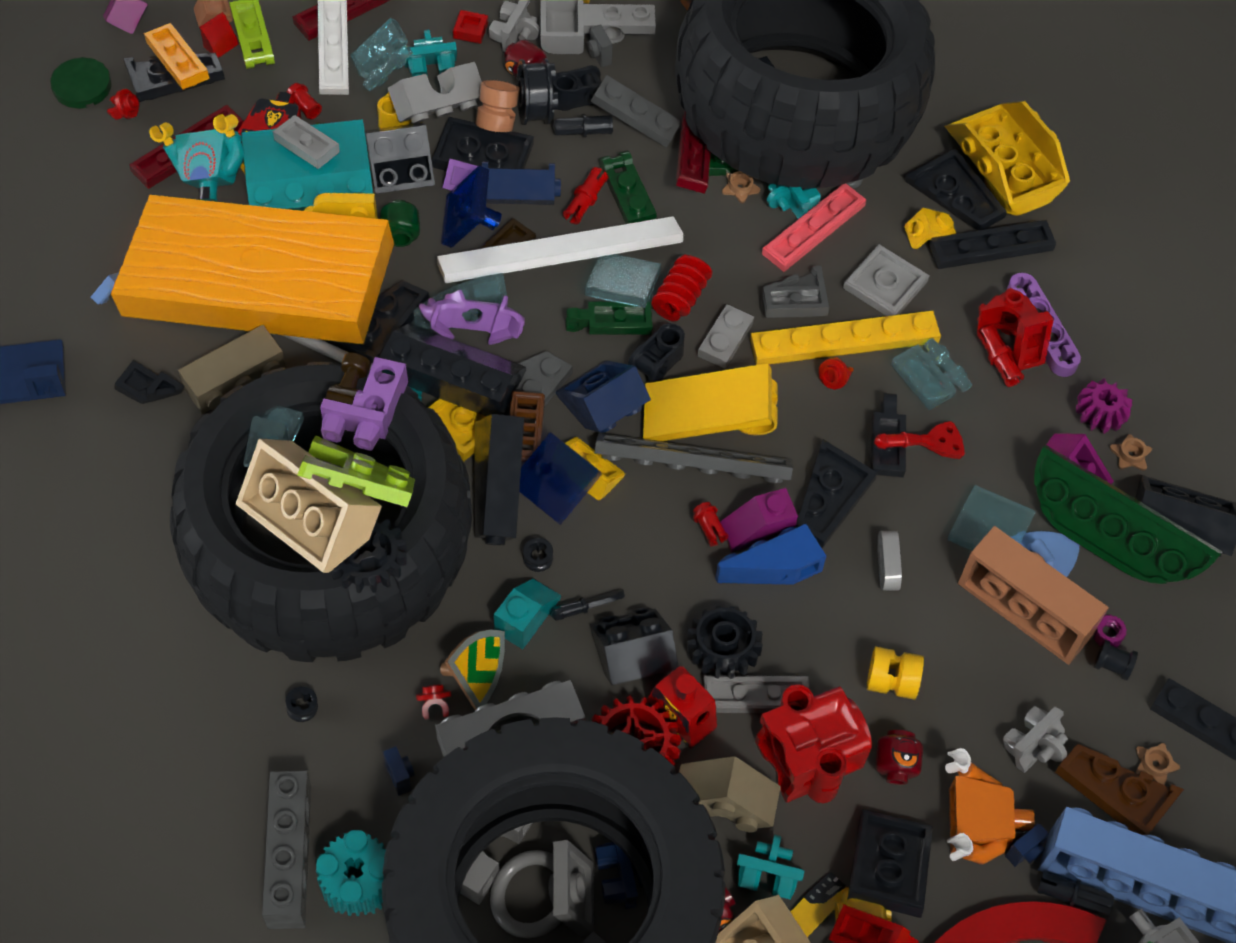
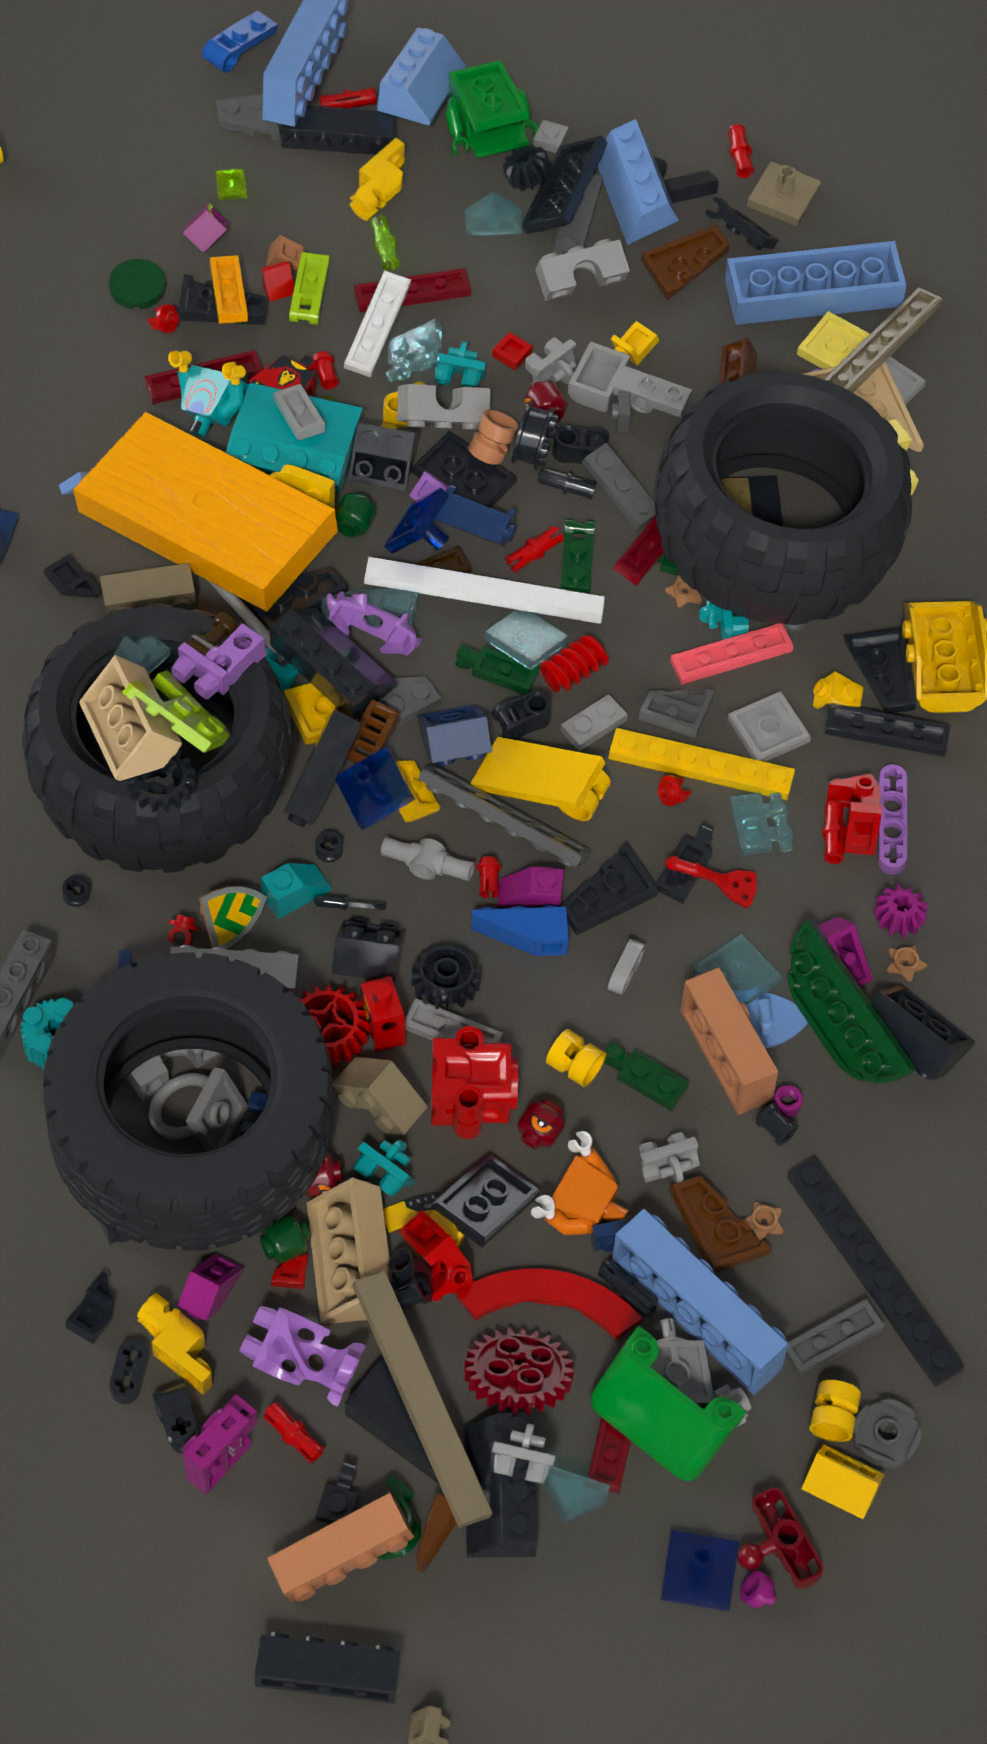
camera: 25 degrees right, 0 degrees up
(642, 529) = (427, 859): none -> light grey pin
(968, 663) = (646, 1076): none -> dark green plate

